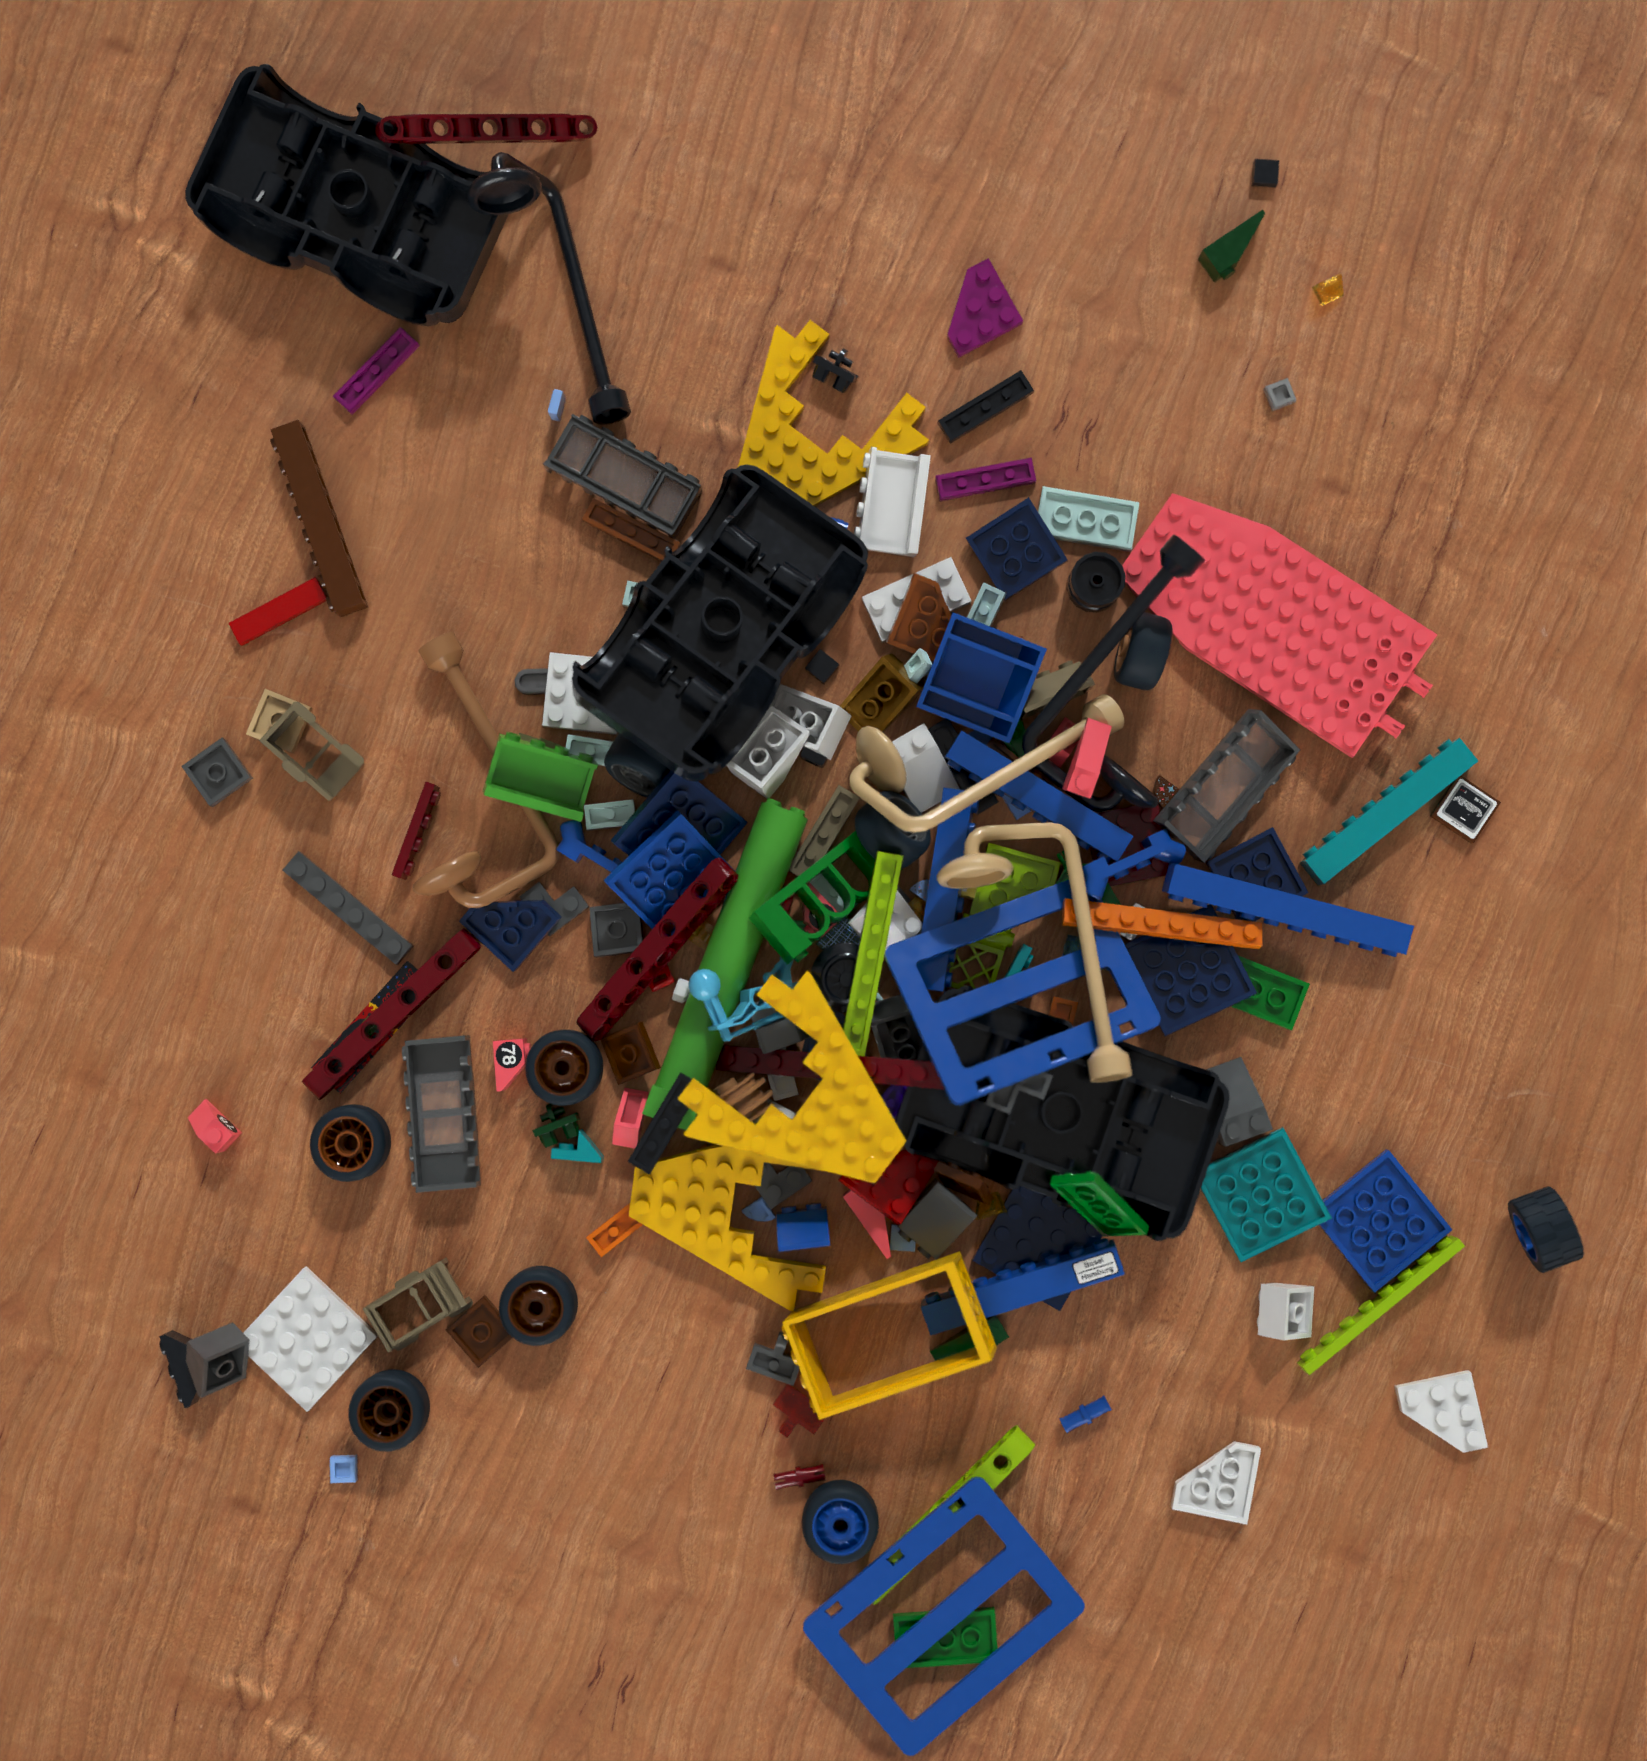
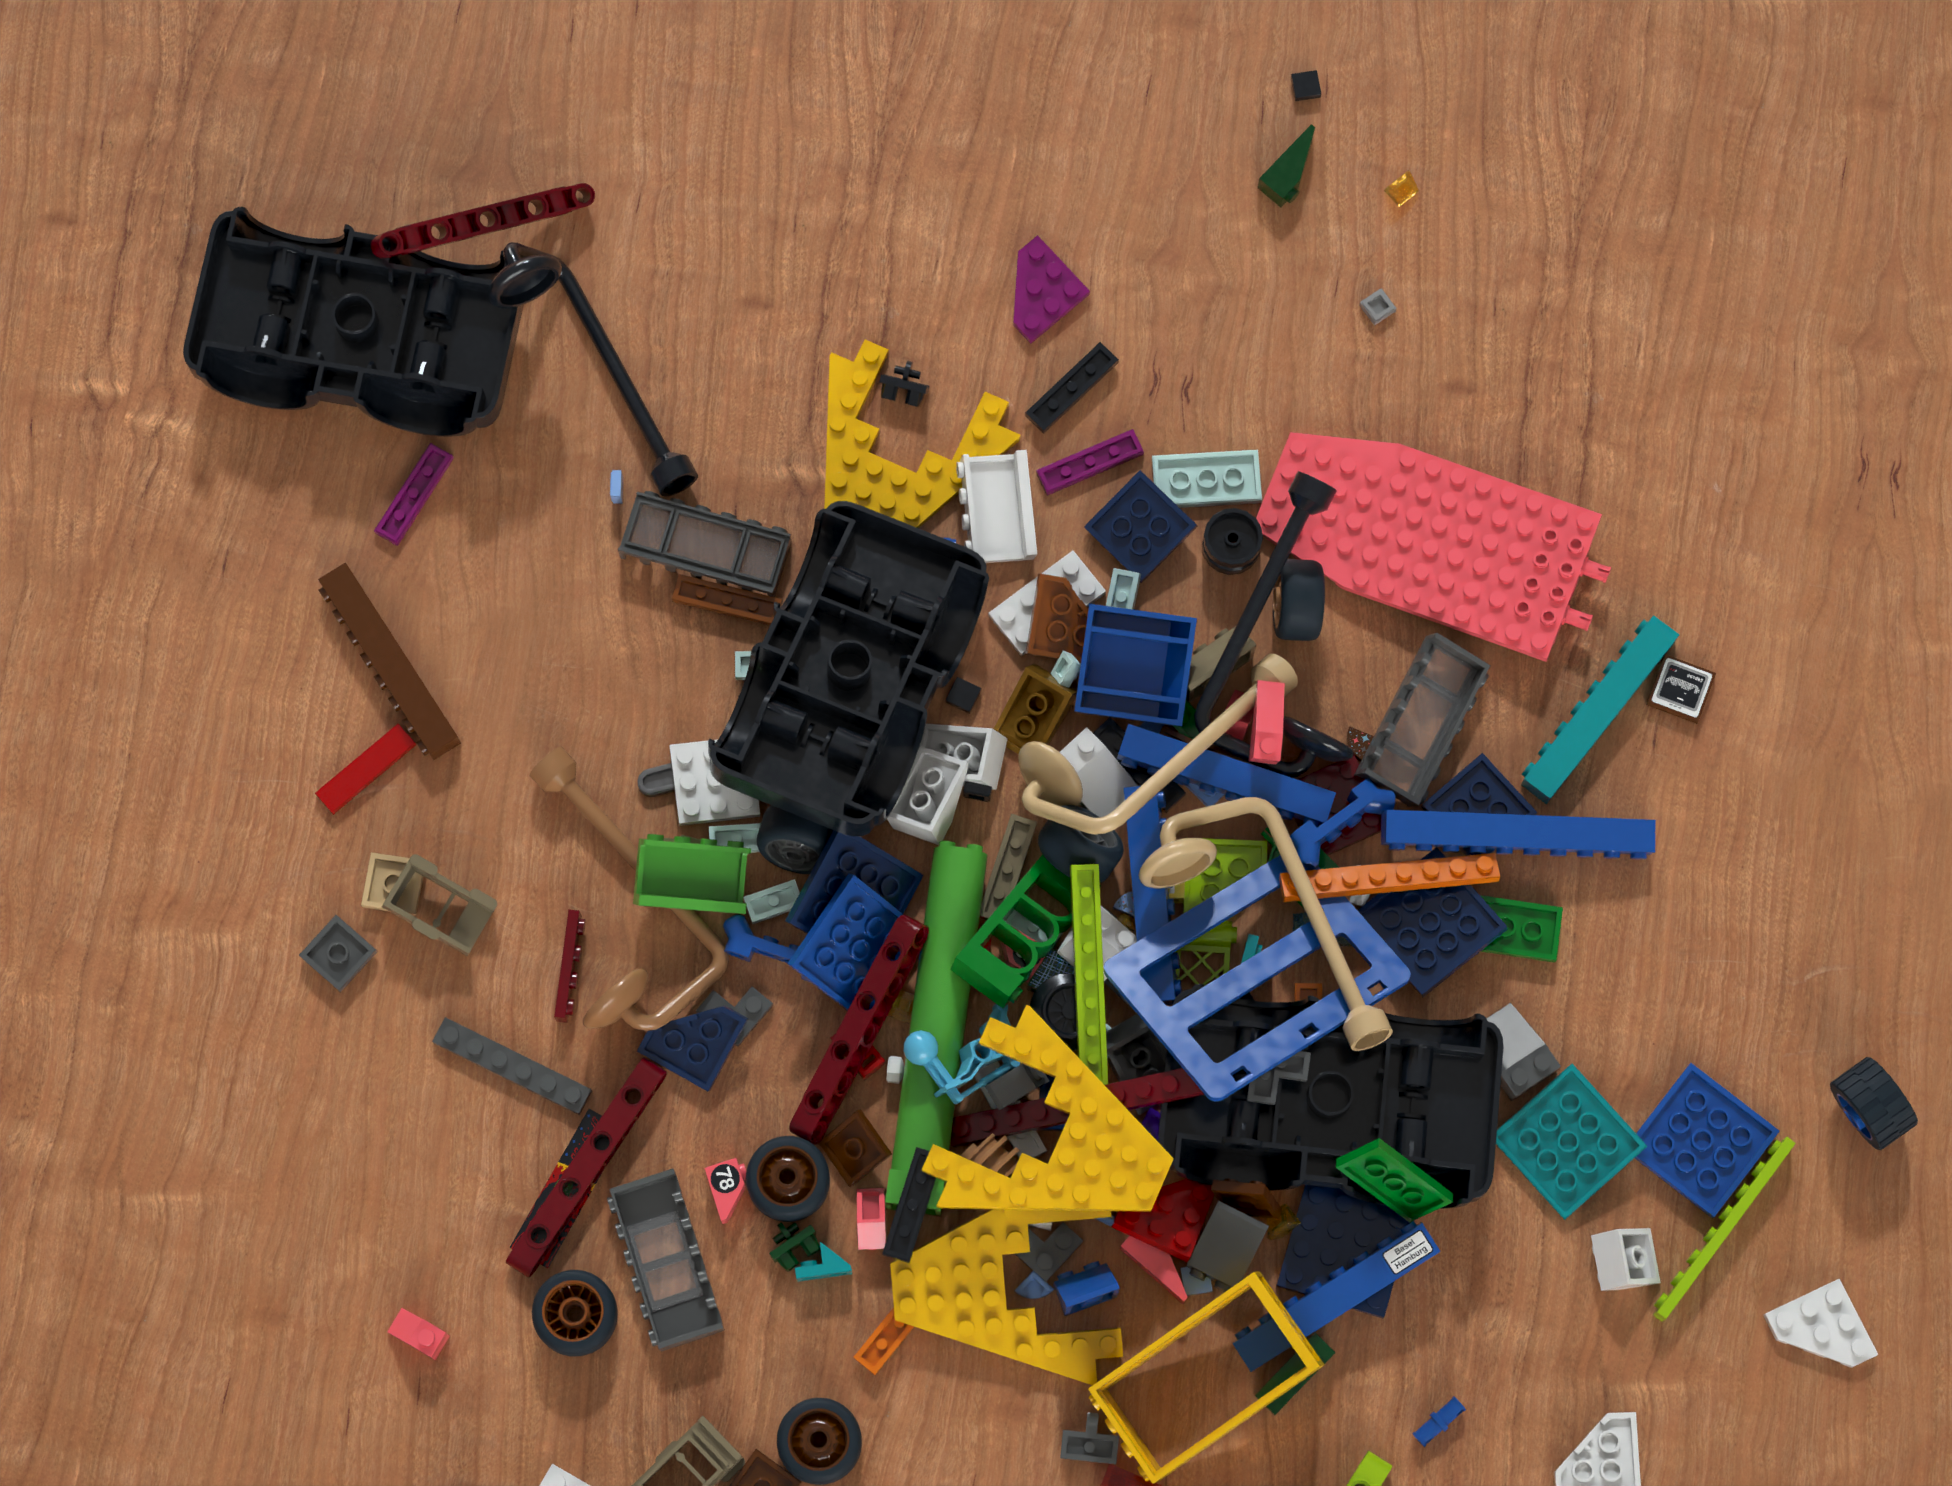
camera: 15 degrees left, 10 degrees down
(615, 930) = (808, 1020): dark grey plate -> none

